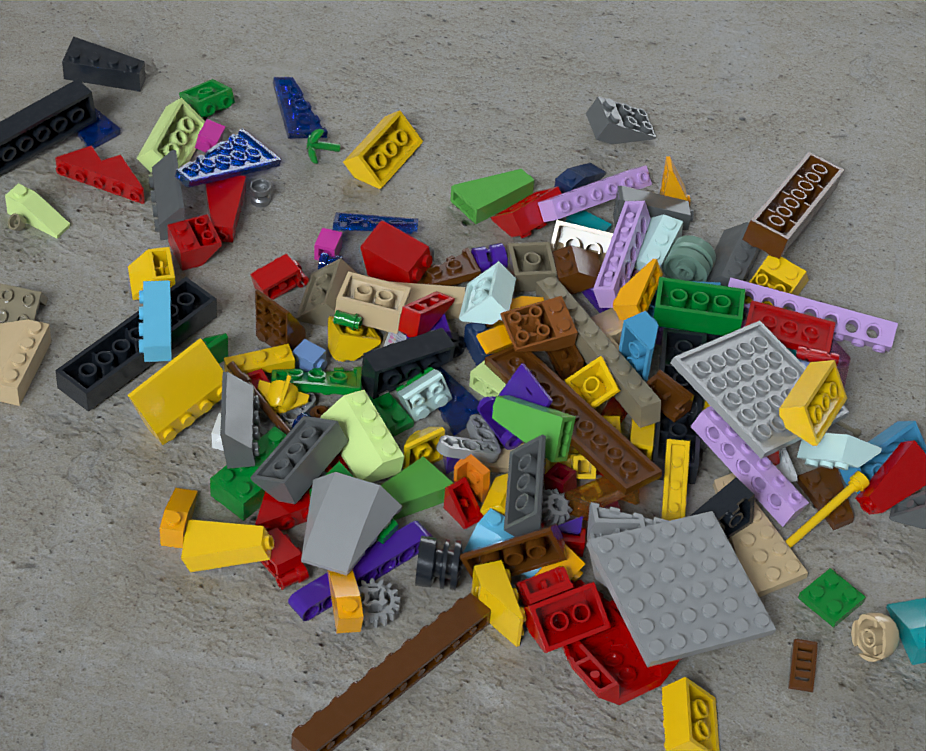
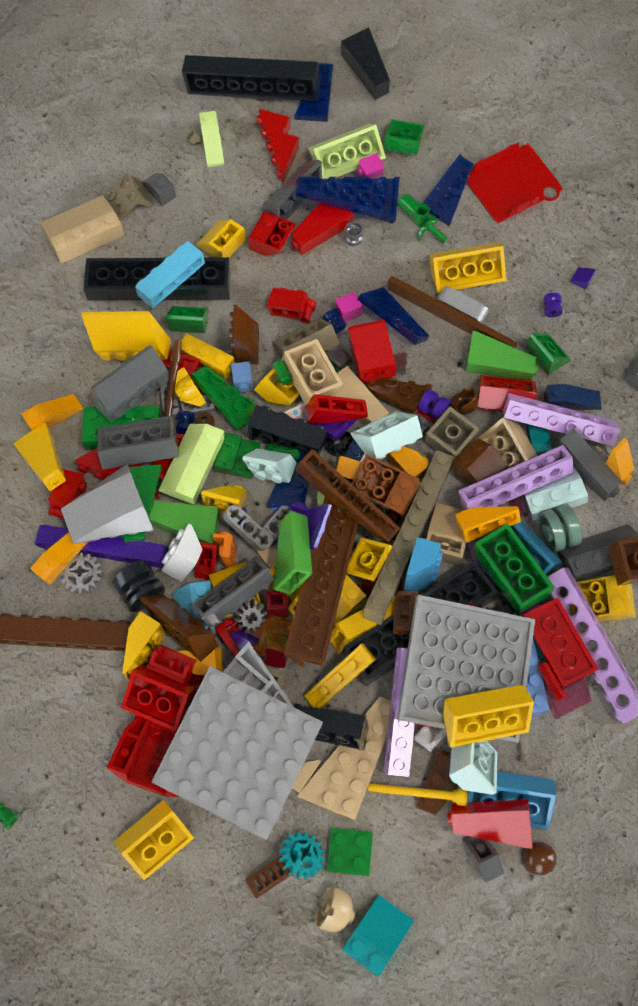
camera: 55 degrees right, 20 degrees up
(39, 277) = (160, 188): none -> dark grey slope
(294, 141) = (413, 208): none -> green piece
(336, 73) = (511, 181): none -> red piece
(404, 193) = (444, 311): none -> reddish brown tile
(415, 180) = (463, 303): none -> light grey beam
(443, 509) = (182, 554): none -> white slope
(478, 97) = (583, 277): none -> dark purple slope
(483, 130) = (553, 306): none -> dark purple wheel
(508, 234) = (465, 402): none -> reddish brown hair
(508, 353) = (346, 496): none -> reddish brown slope
(513, 161) = (547, 352): none -> green slope
(807, 625) = (292, 854): none -> teal gear

